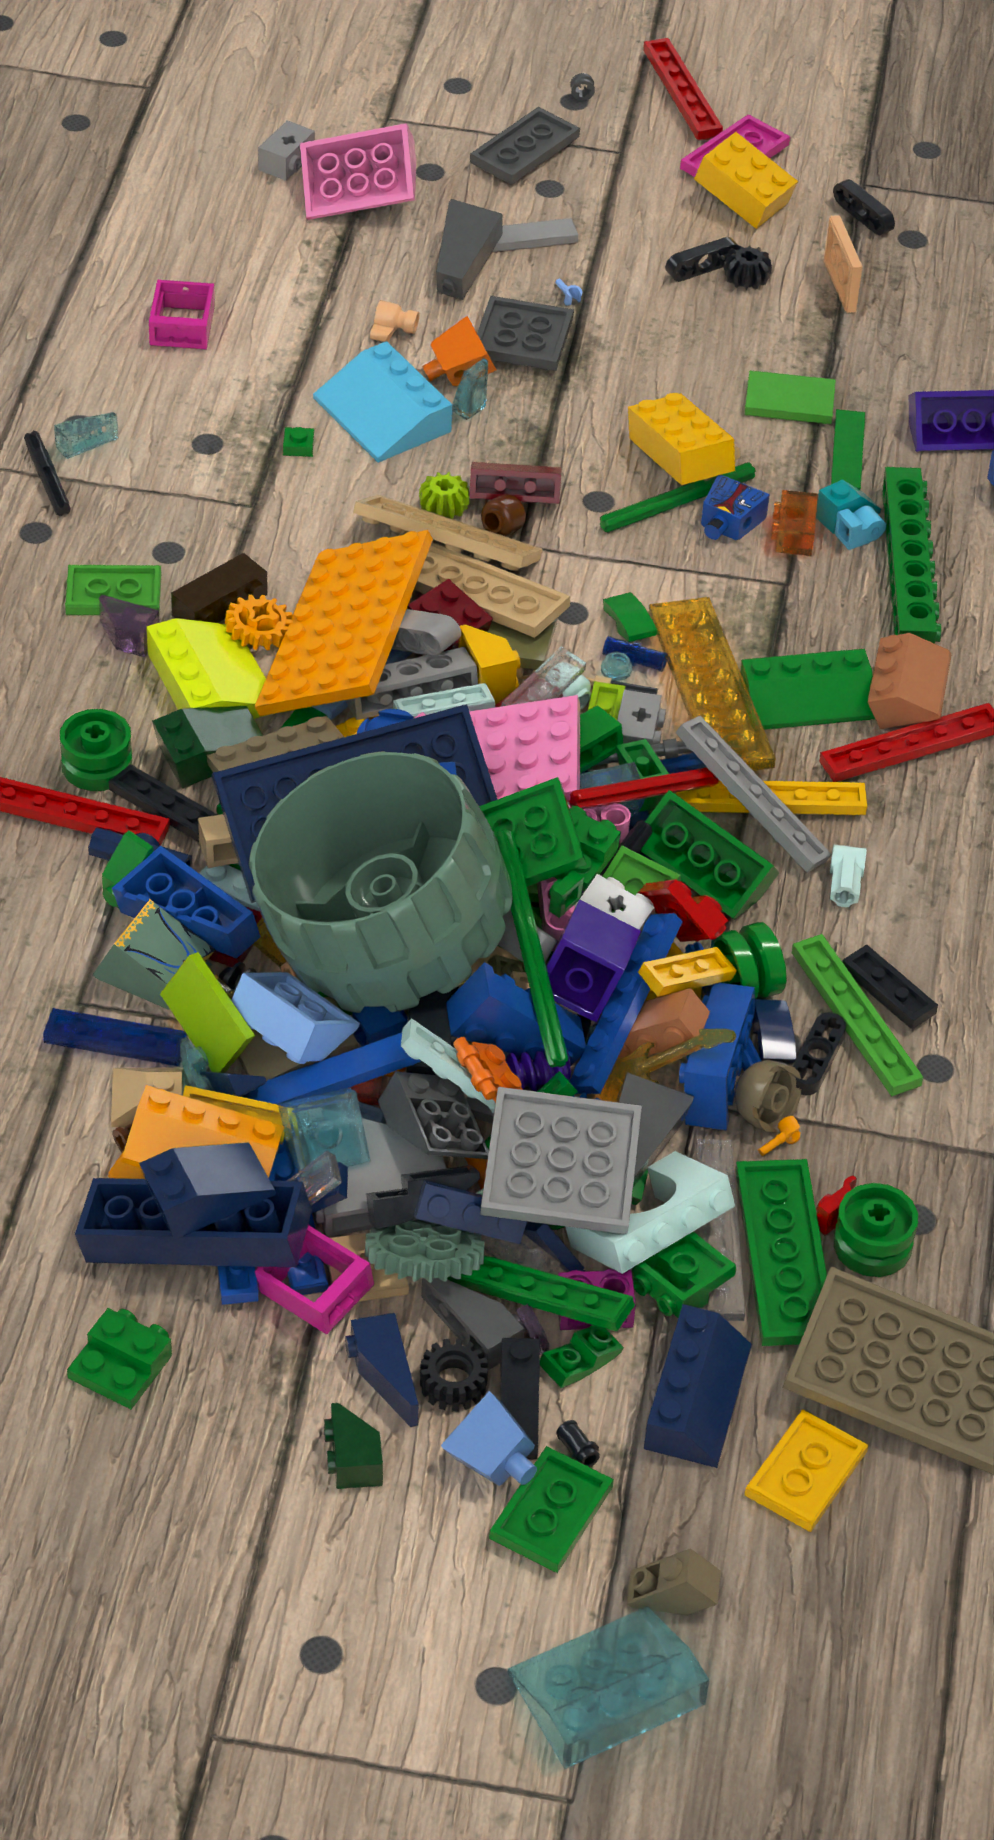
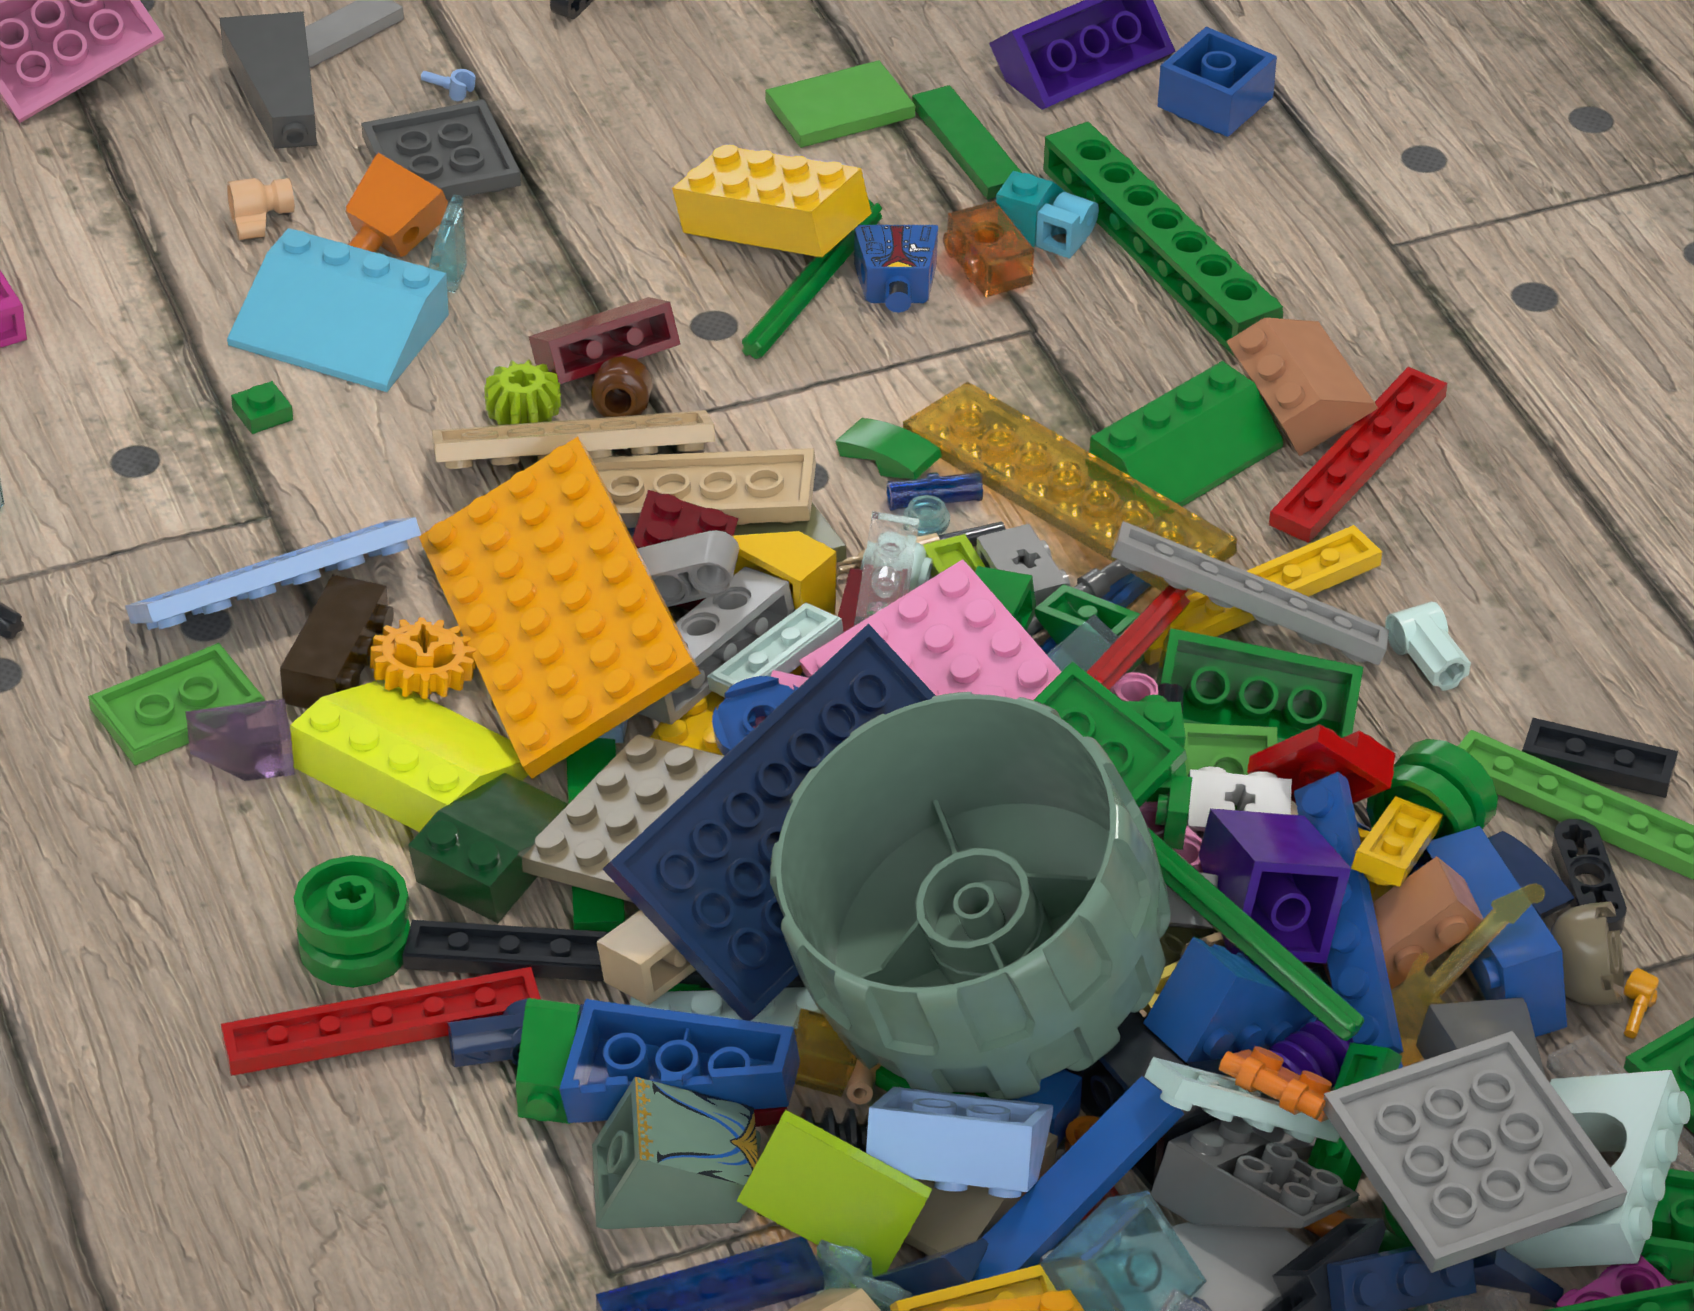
camera: 30 degrees left, 5 degrees down
(204, 538) = (259, 578): none -> light blue plate

